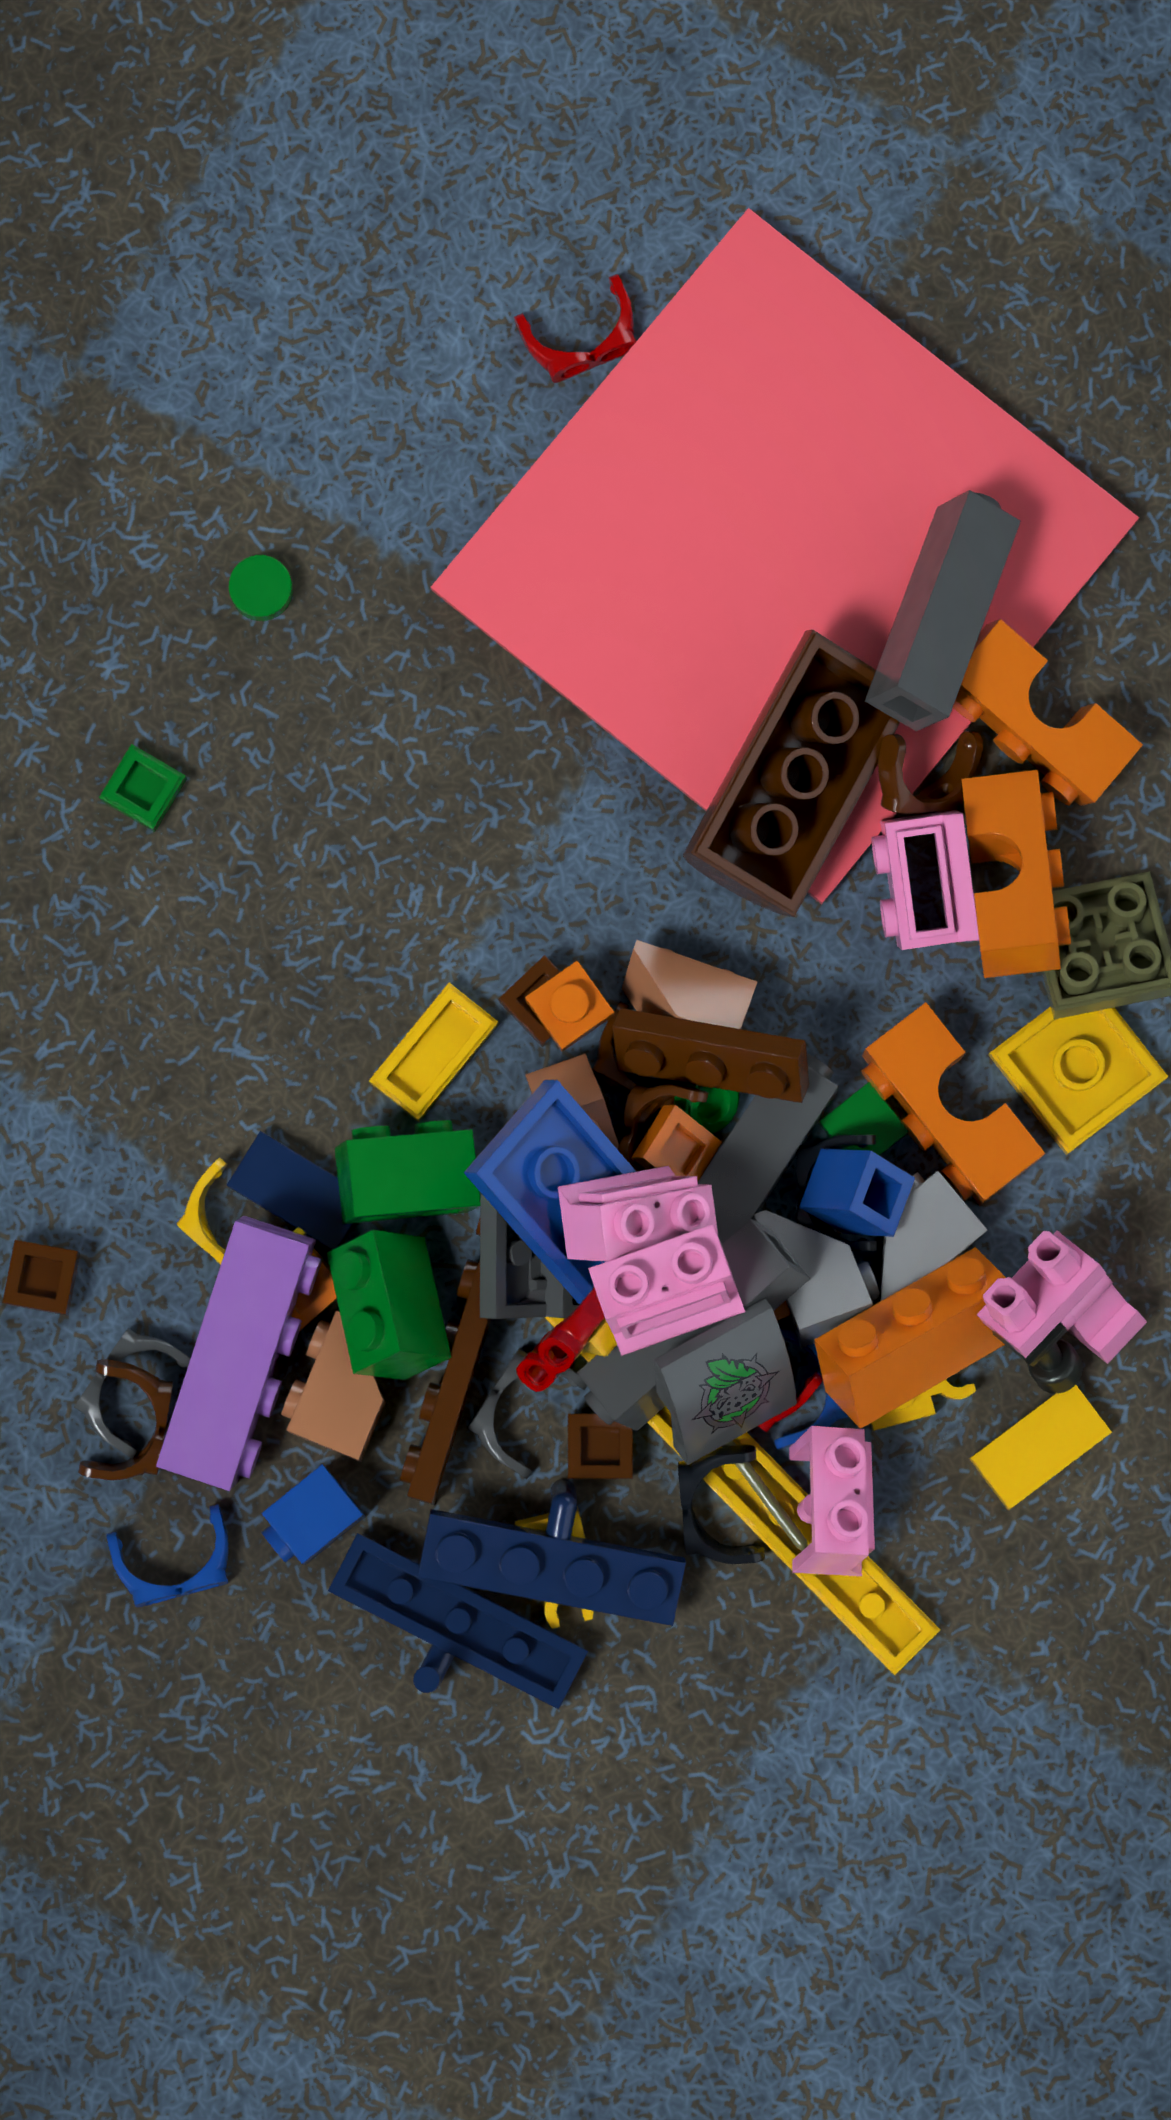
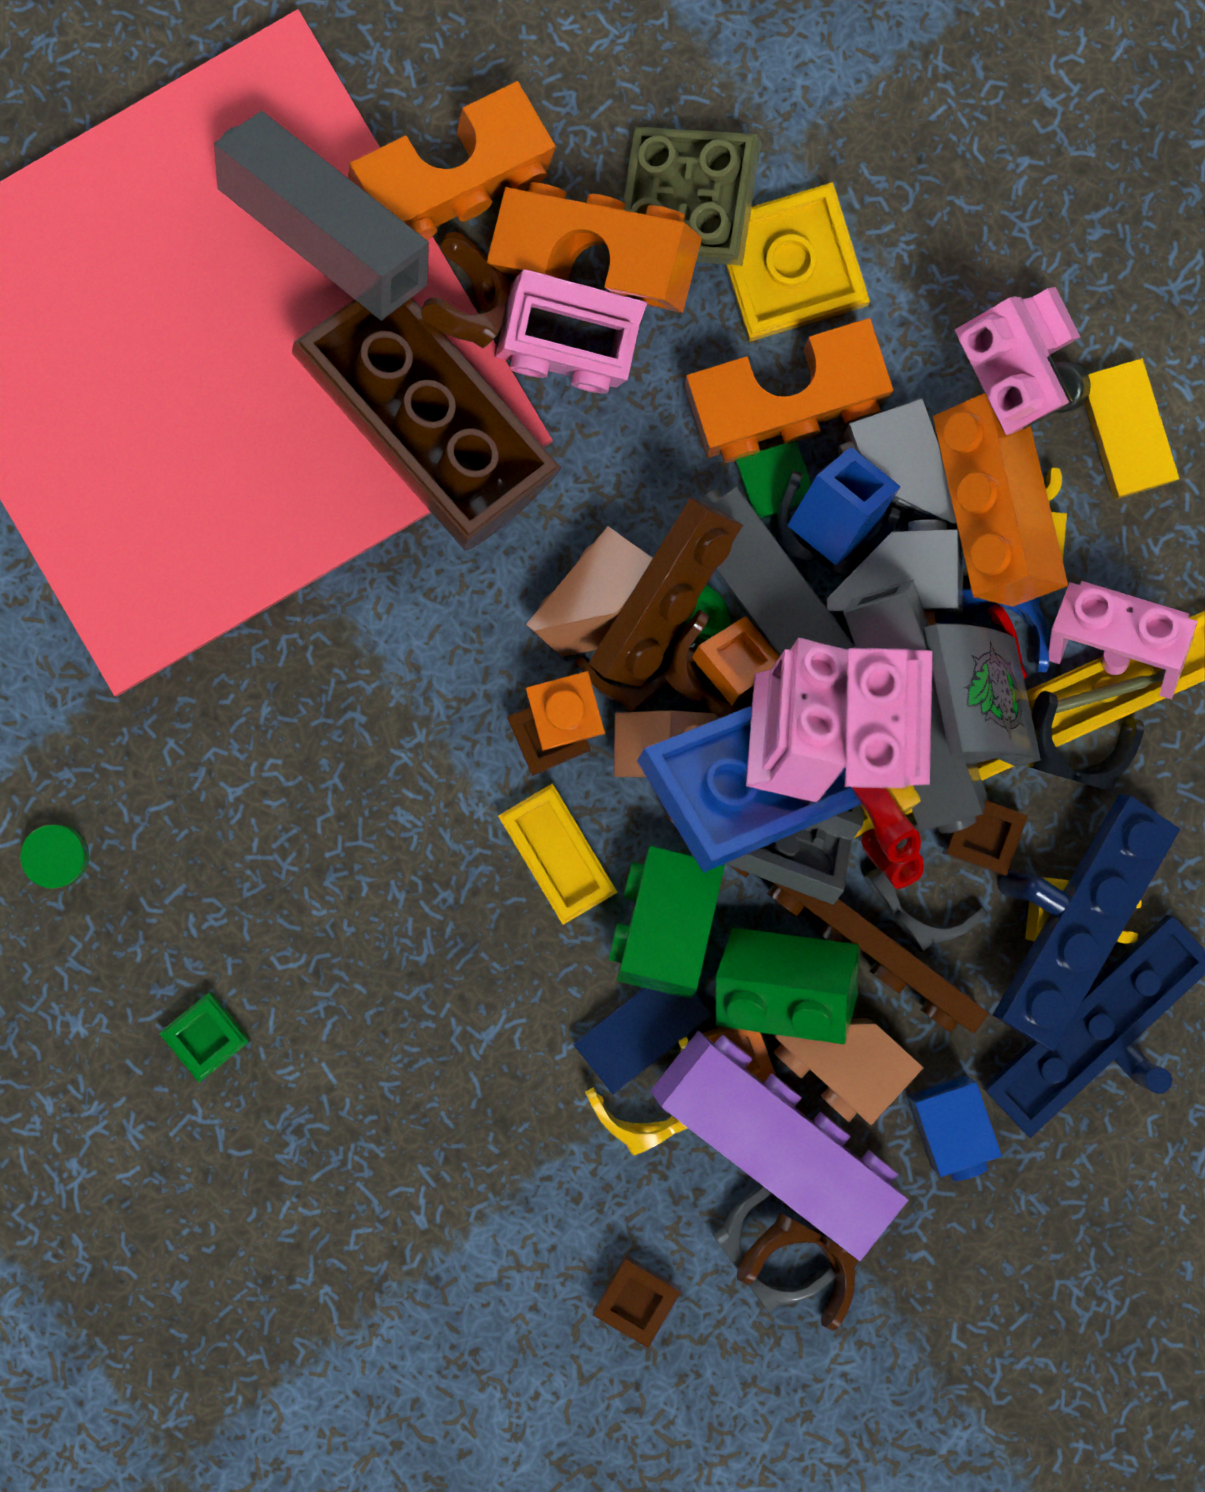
camera: 70 degrees left, 5 degrees up
(210, 1576) = (967, 1304): blue cap -> none

